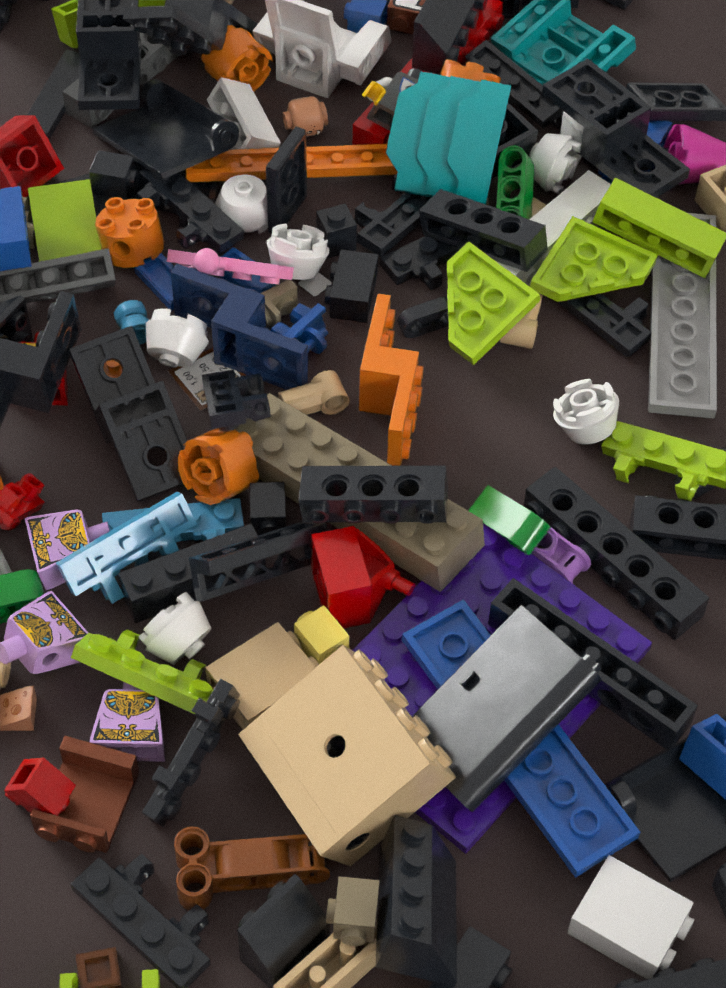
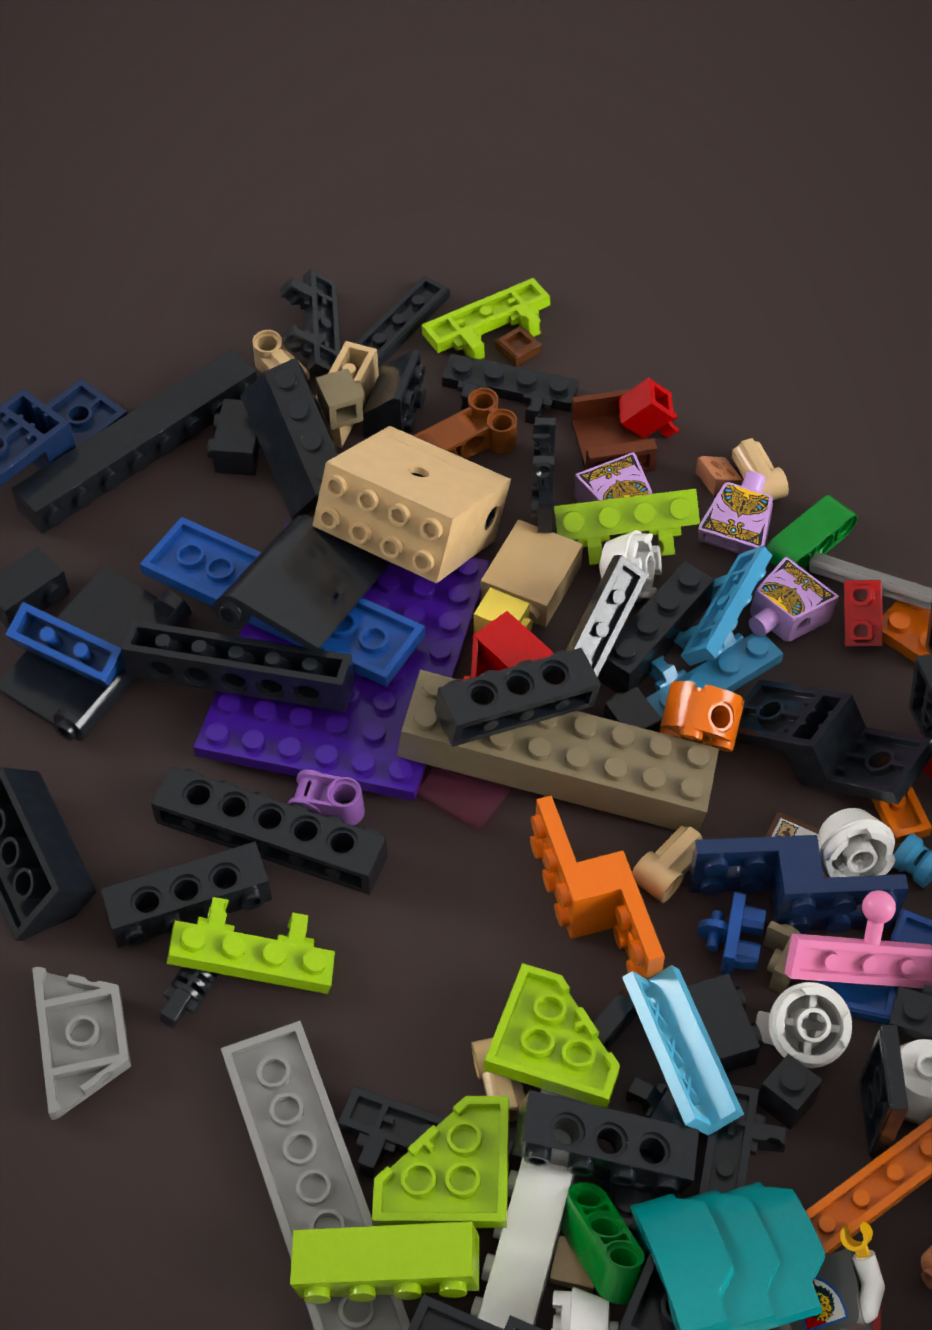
camera: 155 degrees right, 0 degrees up
(234, 399) = (730, 753): black hinge -> none
(396, 259) = (684, 1050): none -> medium azure fence
(510, 519) = (386, 790): beam -> none
(587, 411) = (365, 962): white cone -> none
(631, 918) = (123, 523): white brick -> none

